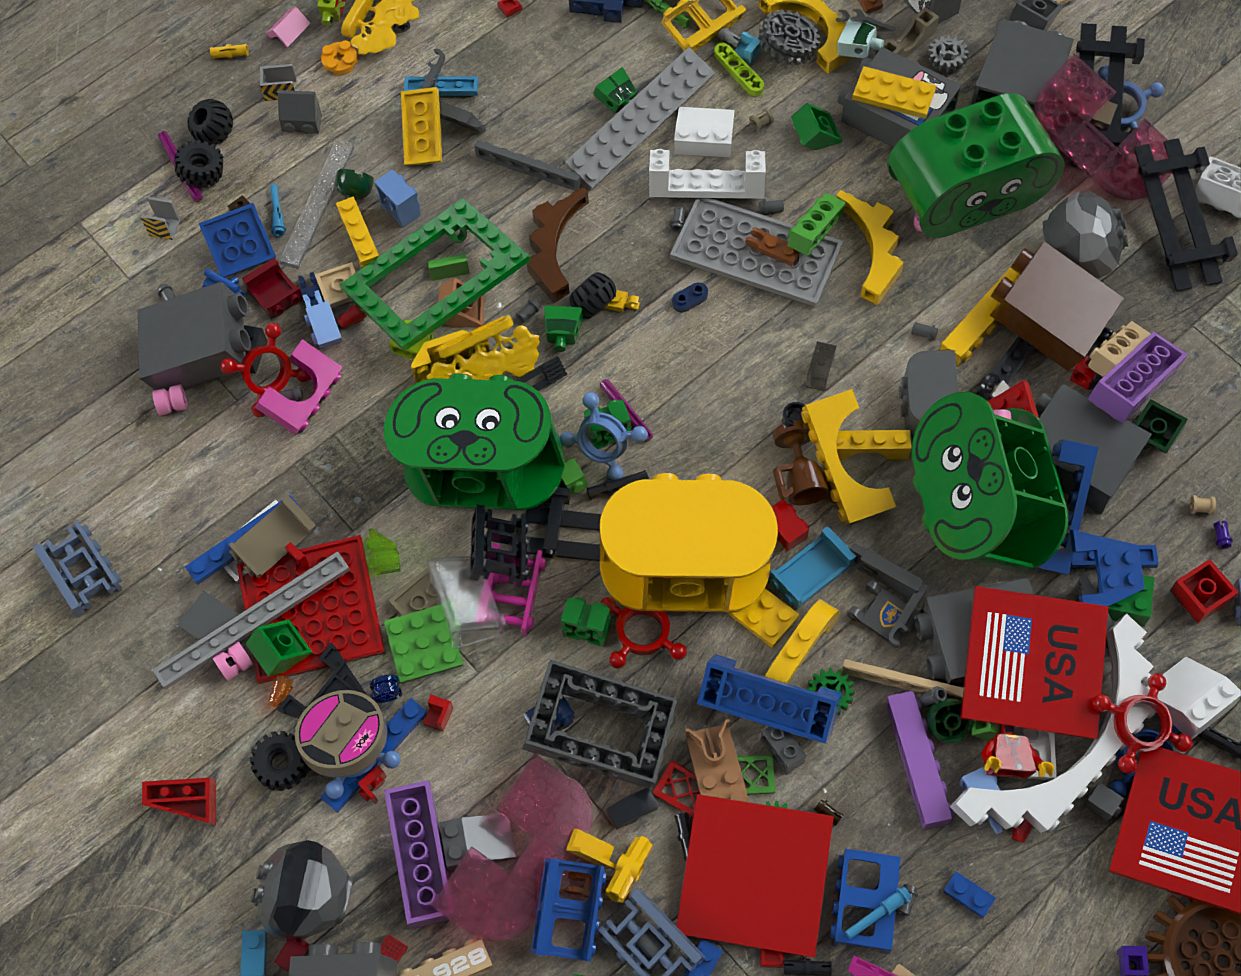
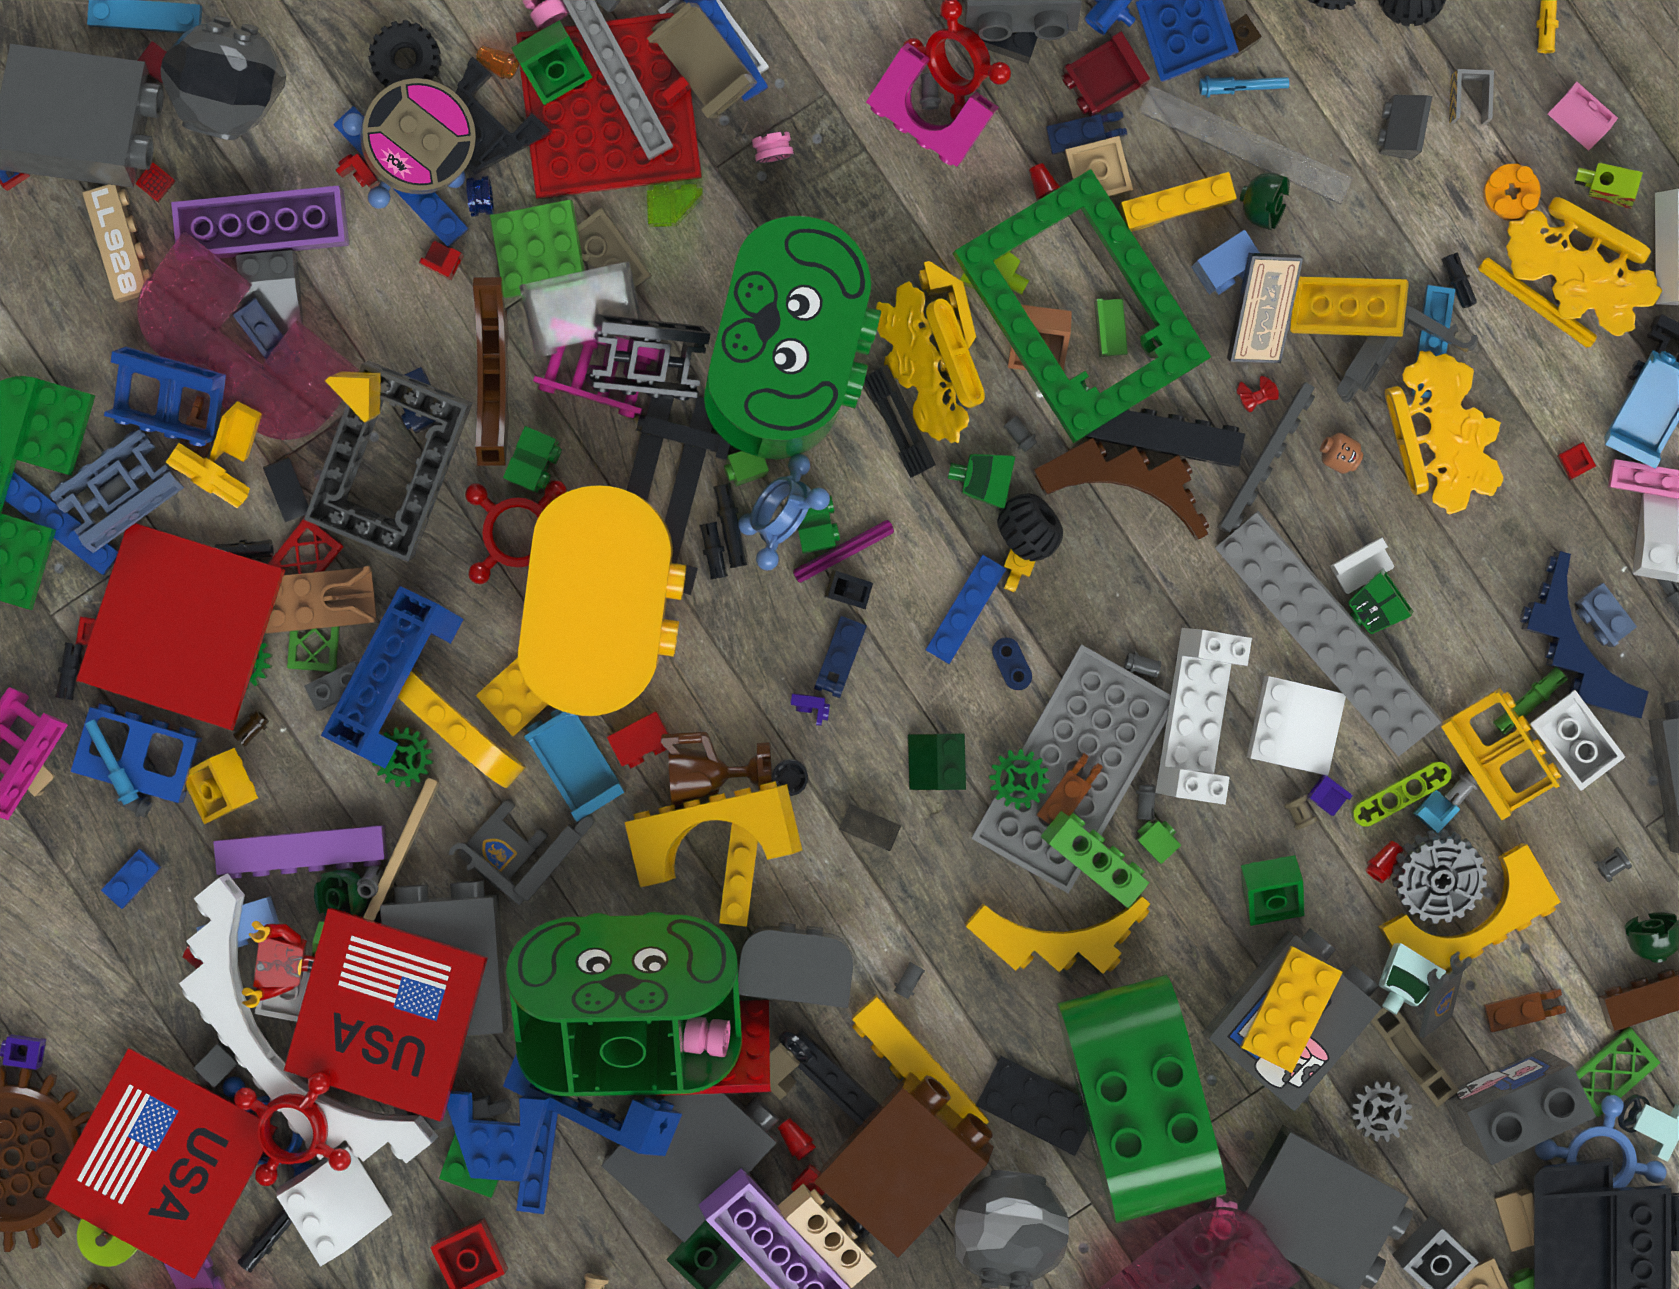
camera: 90 degrees right, 25 degrees up
(322, 321) = (1034, 142): light blue hinge -> none
(335, 488) = (772, 147): none -> bright pink wheel
(399, 77) = (1459, 280): none -> black axle
(409, 37) = (1536, 302): none -> yellow axle
(426, 170) = (1264, 308): none -> tile
(483, 172) = (1250, 399): none -> red piece
(501, 66) = (1454, 437): none -> yellow plant
(504, 842) = (258, 326): none -> dark blue plate
(519, 124) = (1341, 453): none -> nougat head
(520, 217) = (1173, 437): none -> black brick
(520, 660) = (492, 371): none -> reddish brown arch
(546, 731) = (358, 391): none -> yellow slope
(591, 107) = (1362, 565): none -> white panel
(652, 405) = (848, 589): none -> black slope
(656, 330) = (965, 609): none -> blue plate
(702, 403) = (840, 655): none -> dark blue plate
(740, 413) = (806, 703): none -> dark purple bracket
(745, 107) = (1328, 795): none -> dark purple panel
(766, 330) = (937, 761): none -> dark green slope
(769, 275) = (1029, 770): none -> green gear
(787, 72) = (1382, 863): none -> red cone
(796, 195) = (1158, 839): none -> bright green brick
(880, 828) = (220, 786): none -> yellow slope
(992, 247) = (1034, 1105): none -> black plate
(1055, 383) = (796, 1139): none -> red cone

